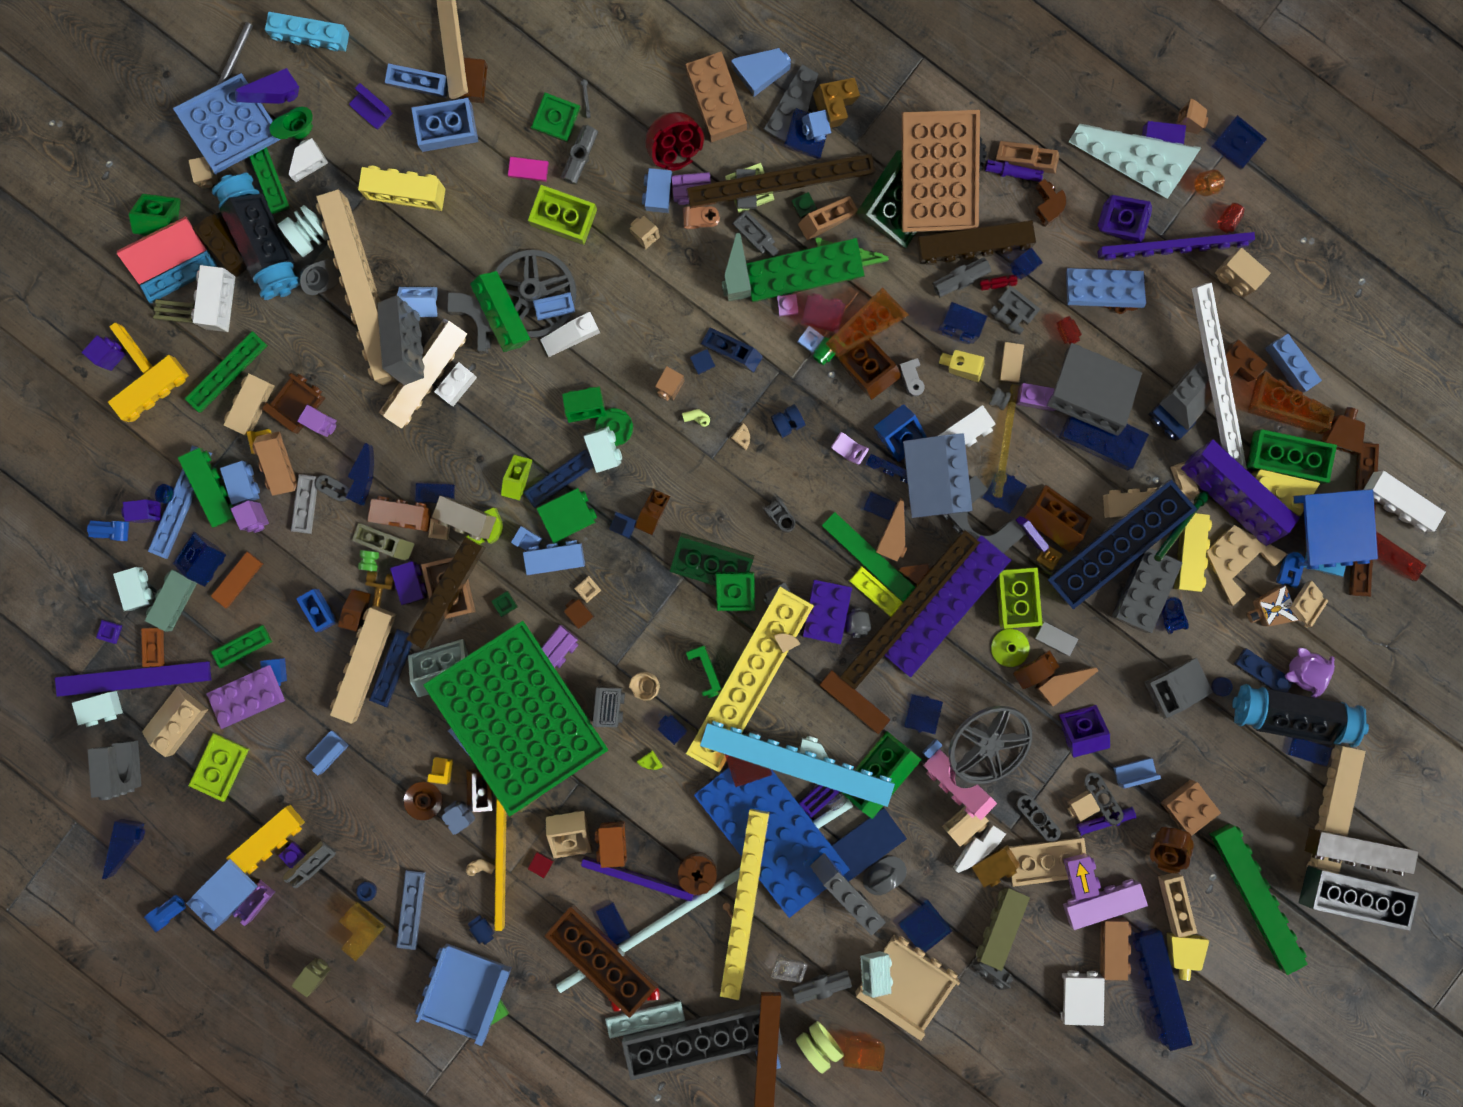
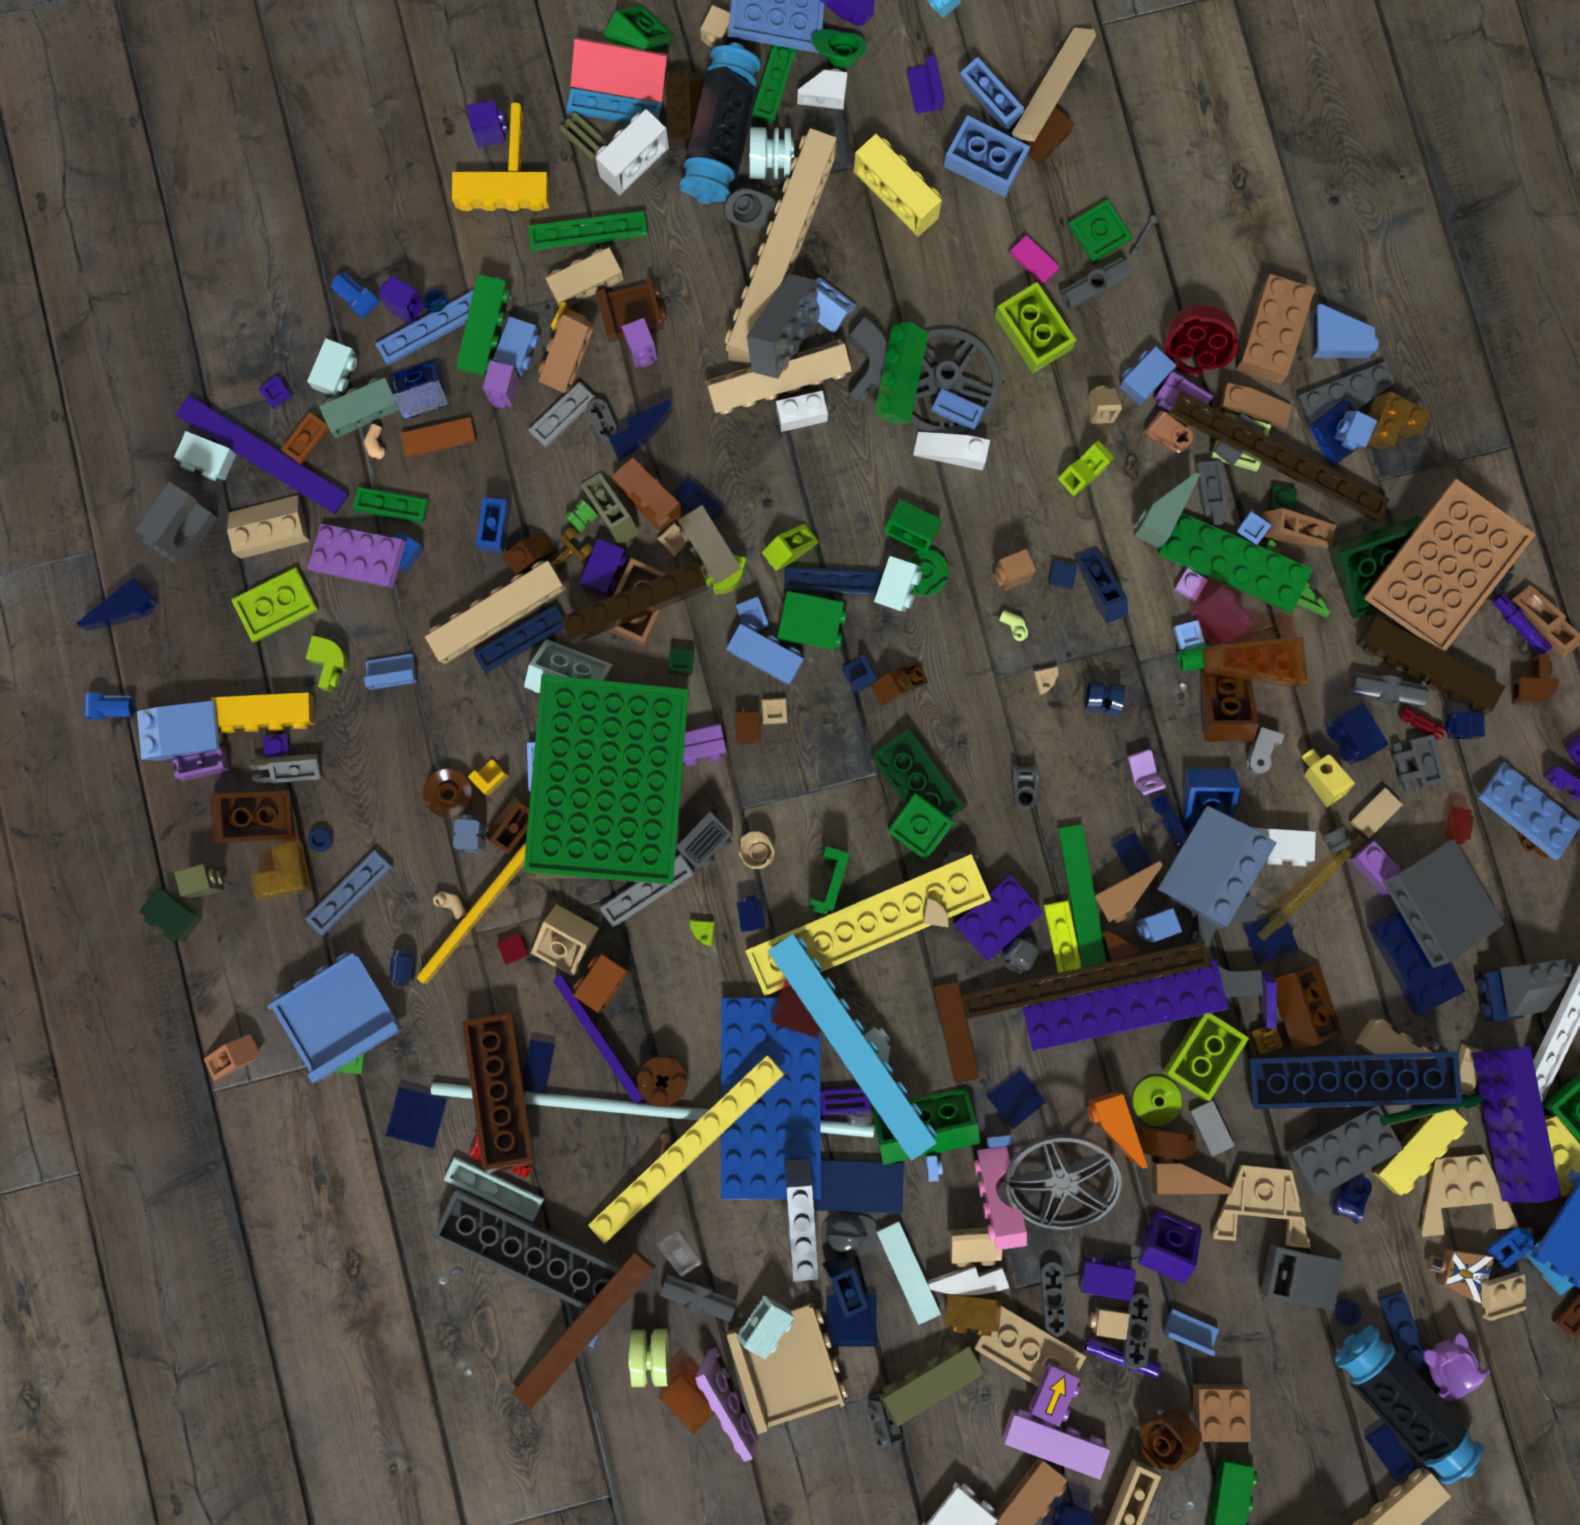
camera: 35 degrees right, 5 degrees down
(197, 617) = (371, 443): none -> light nougat arm
(283, 773) = (333, 659): none -> lime brick
(310, 1011) = (170, 915): none -> clear green brick
(311, 911) = (250, 817): none -> reddish brown slope
(419, 1066) = (232, 1057): none -> nougat slope
(563, 1013) = (416, 1117): none -> clear blue tile
(593, 771) = (643, 894): none -> light grey tile
(665, 282) = (1086, 468): none -> lime brick
(741, 158) = (1255, 405): none -> medium nougat slope
(799, 239) = (1253, 527): none -> medium blue panel
(887, 1037) = (726, 1405): none -> lavender wing
(905, 796) = (933, 1167): none -> light blue plate
(905, 910) = (845, 1285): none -> dark blue slope
(929, 540) = (1158, 926): none -> medium blue brick
(937, 871) = (908, 1272): none -> light aqua tile
(992, 682) = (1114, 1120): none -> orange slope
(1061, 781) = (1107, 1279): none -> dark purple brick
(1118, 654) = (1263, 1194): none -> tan wing

